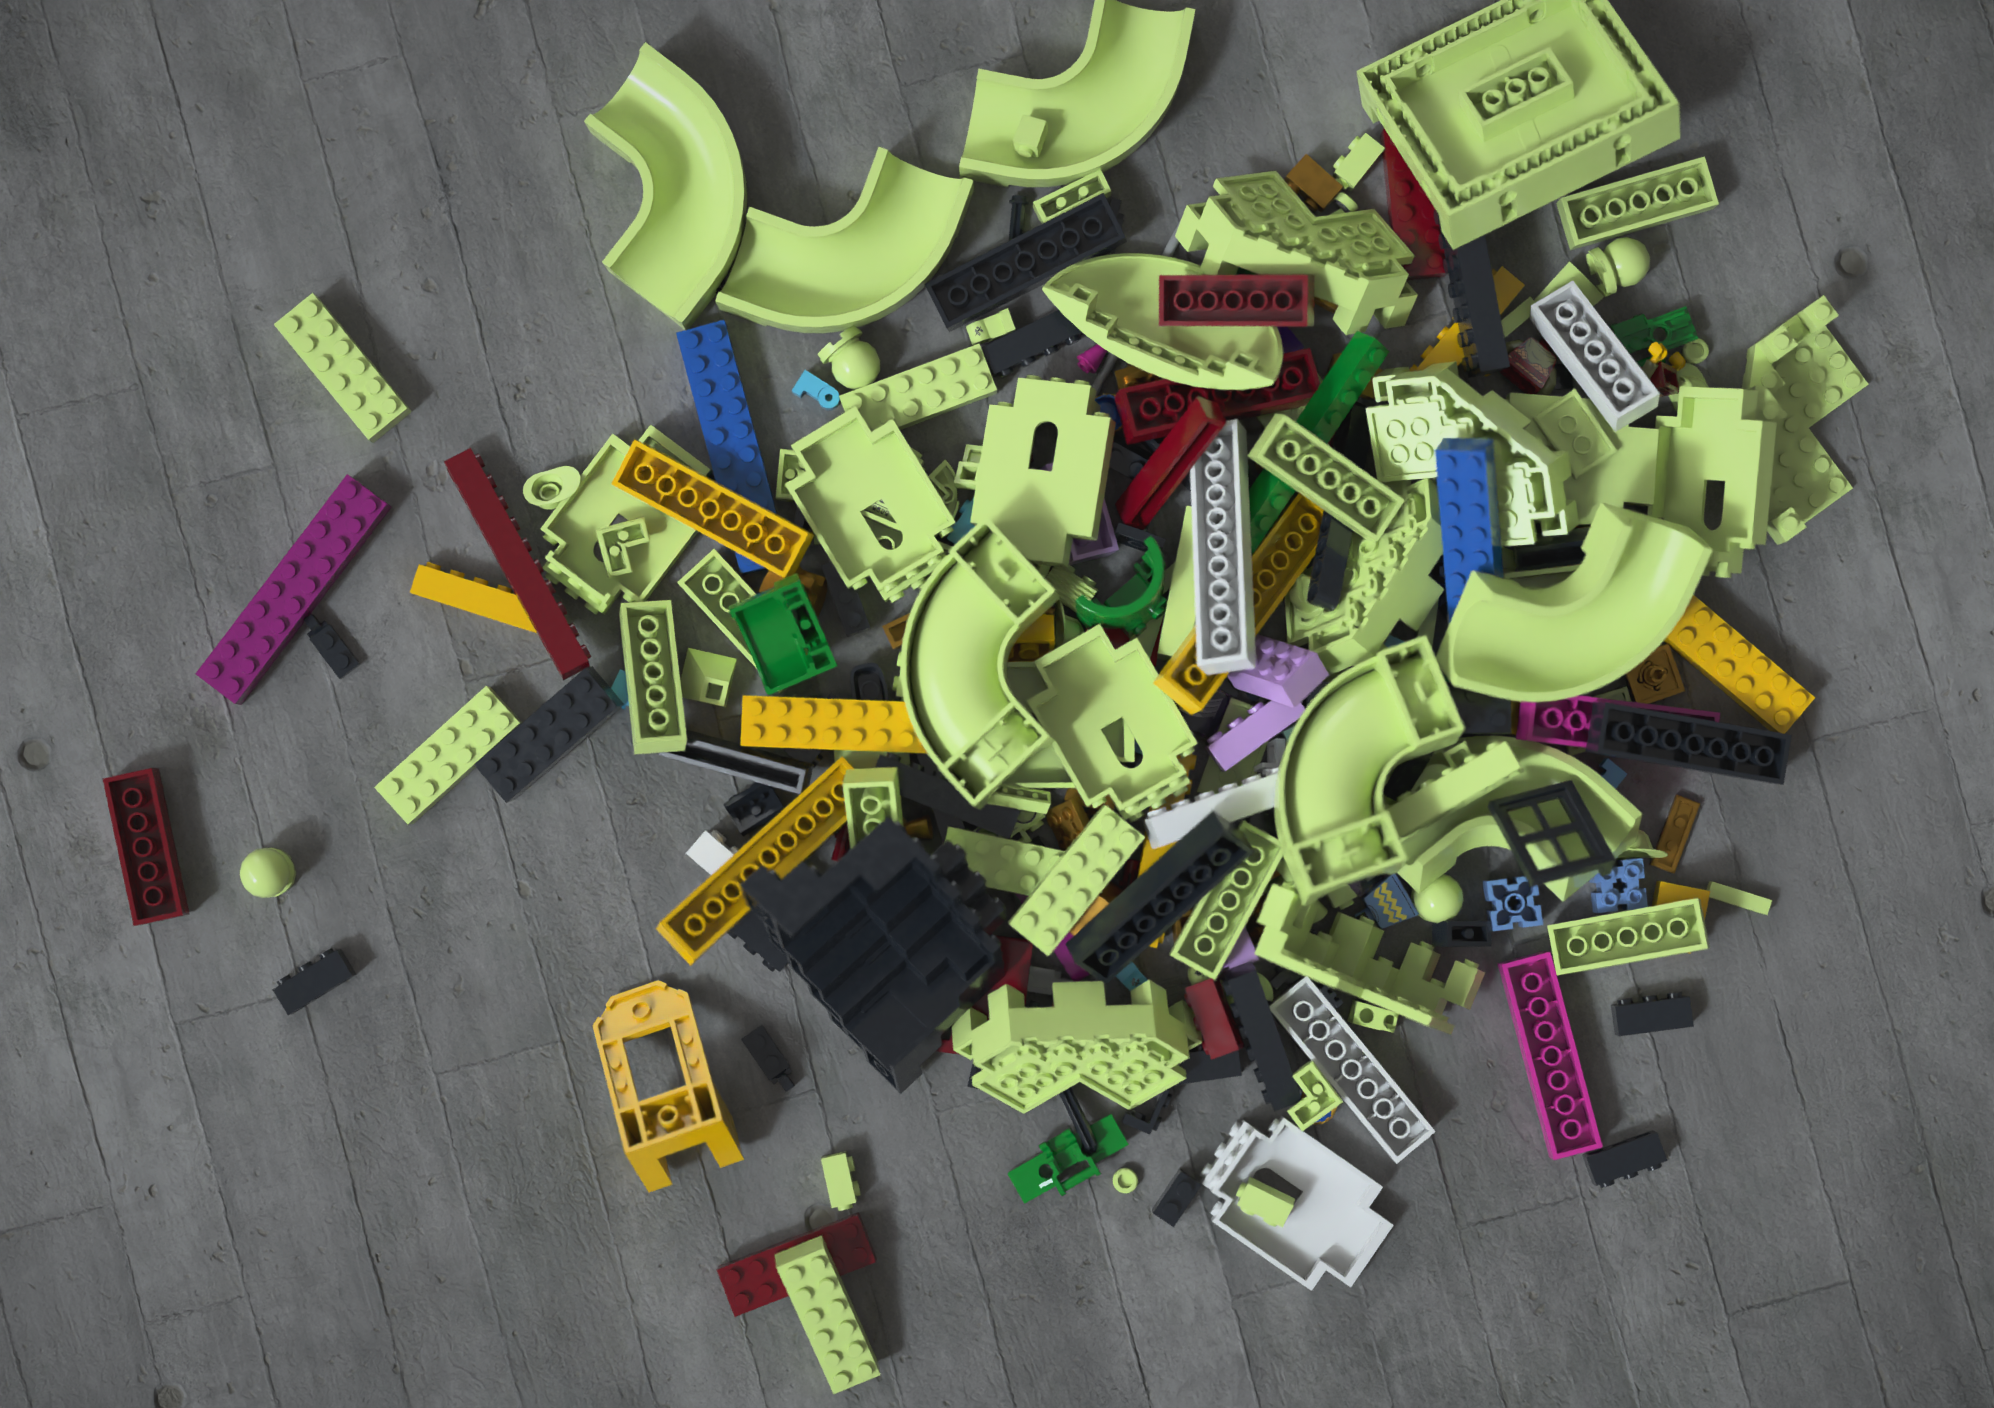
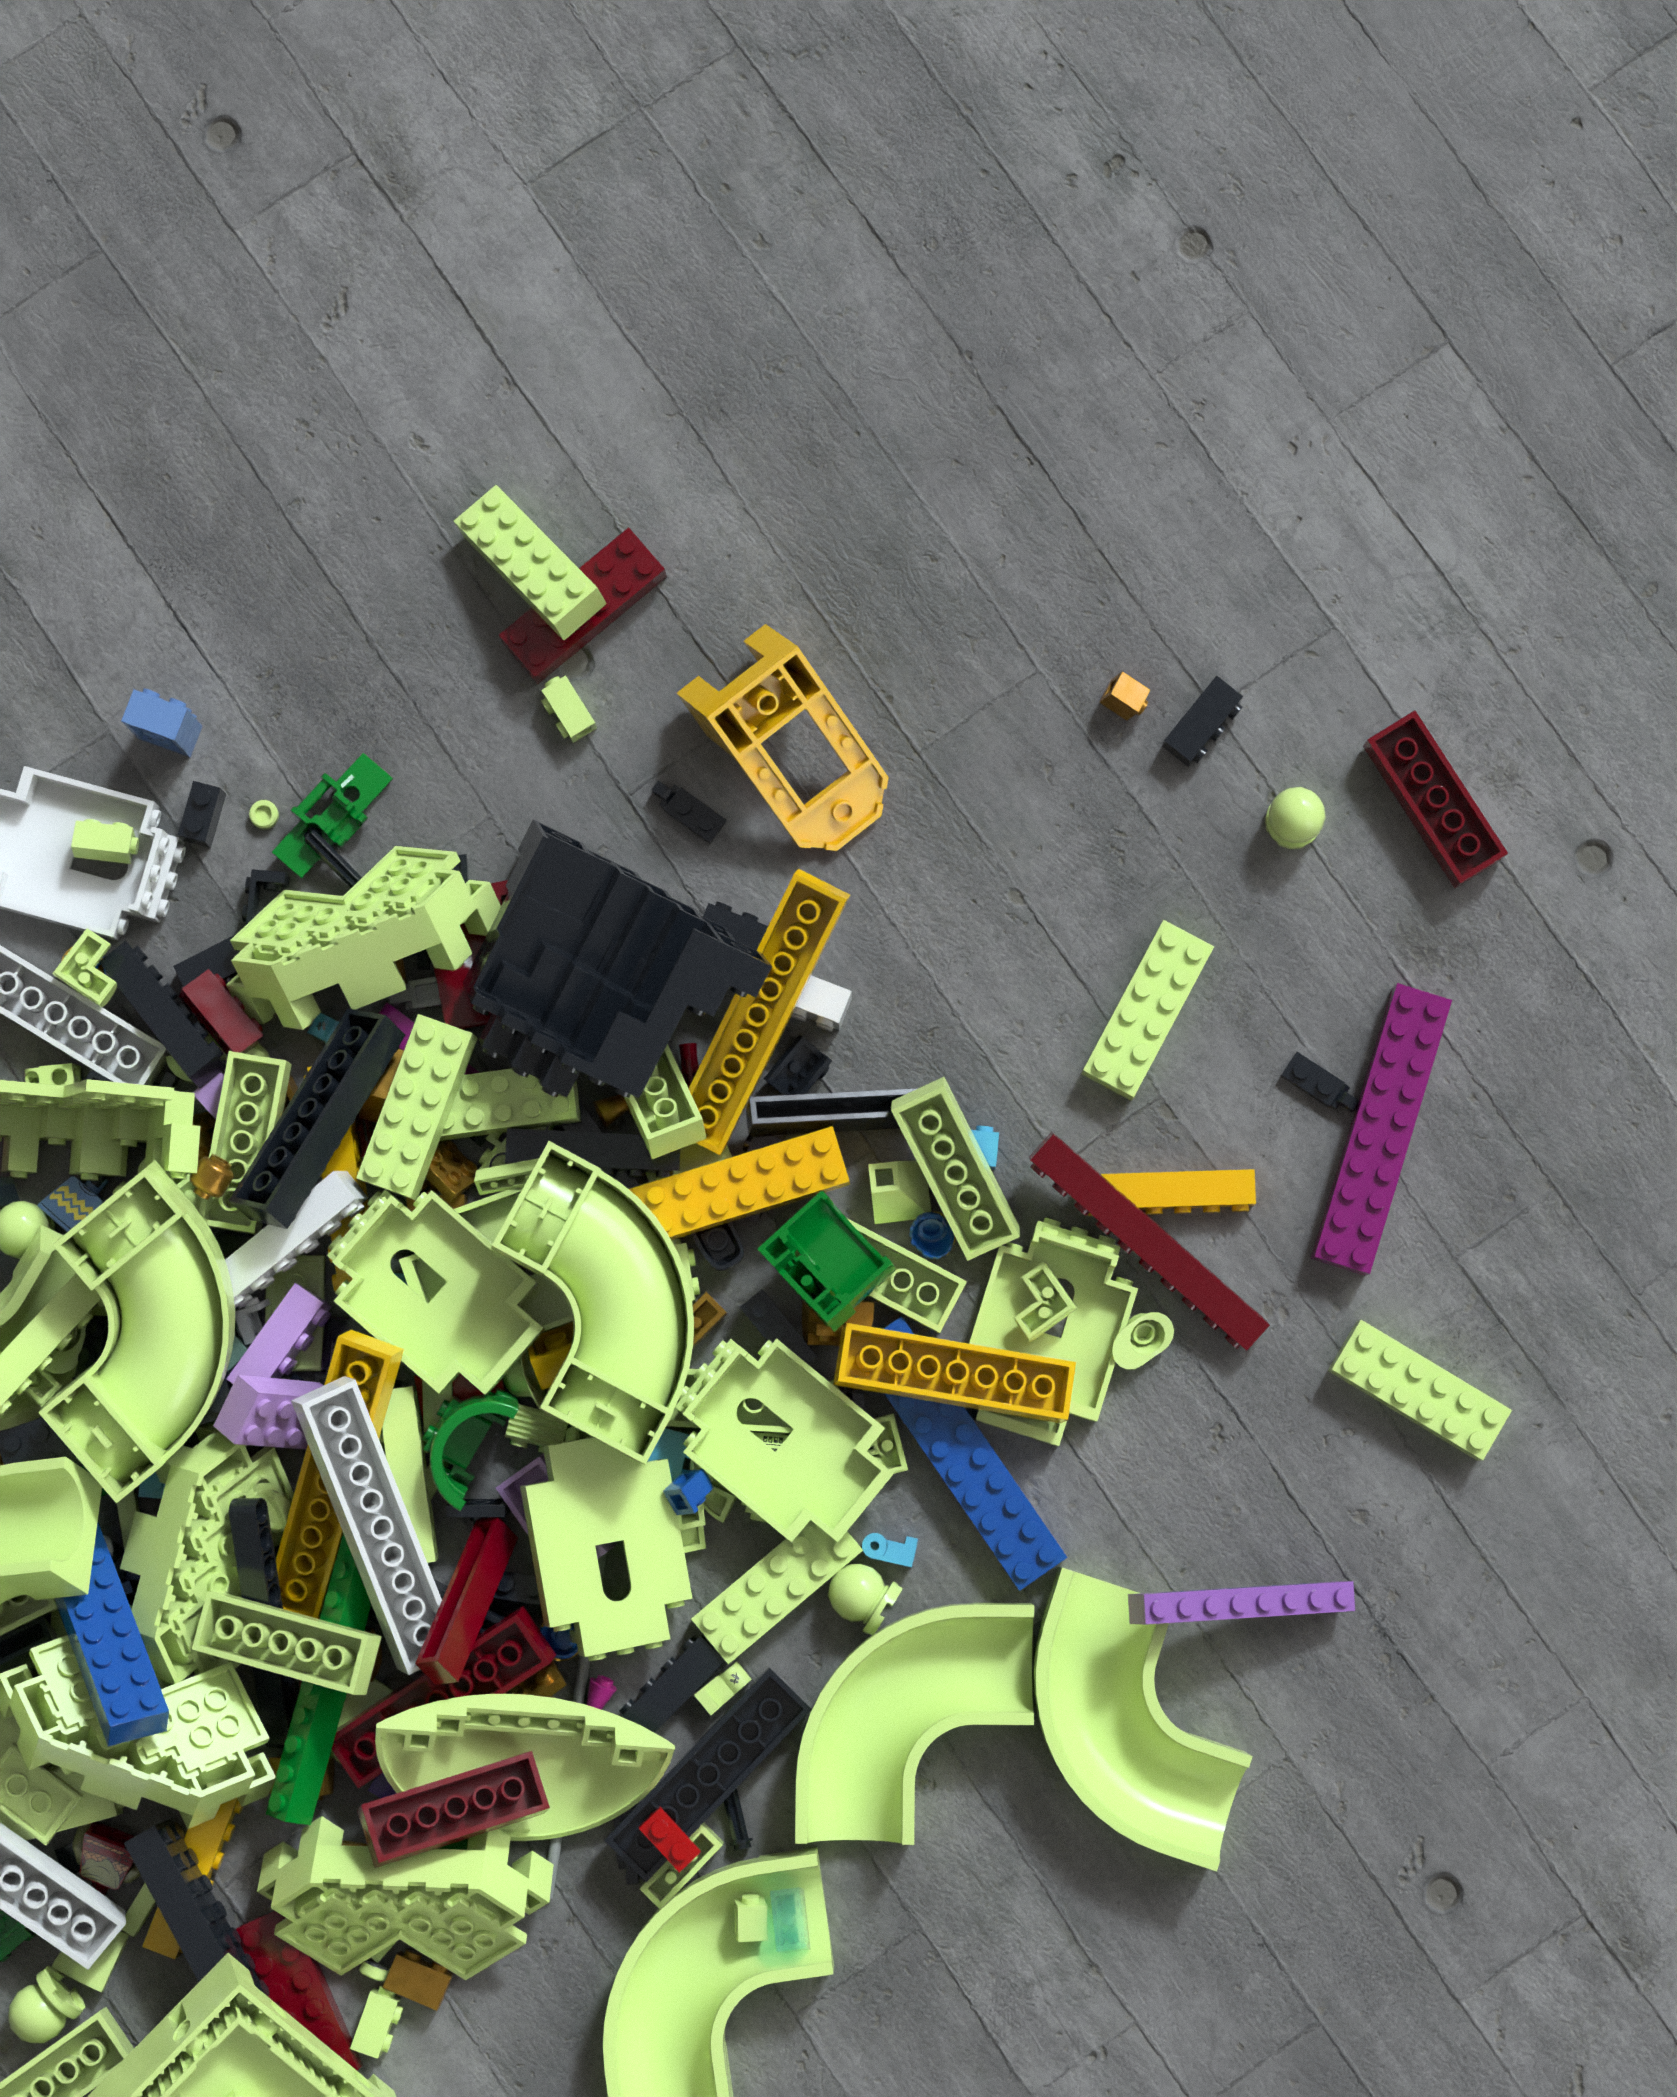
camera: 165 degrees right, 5 degrees down
(370, 1025) = (1125, 696): none -> brick
(548, 245) = (1241, 1602): none -> medium lavender brick
(549, 734) = (1046, 1069): black brick -> none
(692, 632) = (932, 1235): none -> blue hair
(962, 489) = (688, 1491): none -> blue brick
(998, 123) = (790, 1920): none -> clear light blue brick
(1072, 218) = (669, 1839): none -> red brick
(1183, 1285) = (162, 722): none -> medium blue brick
(1261, 877) = (212, 1177): none -> pearl gold head

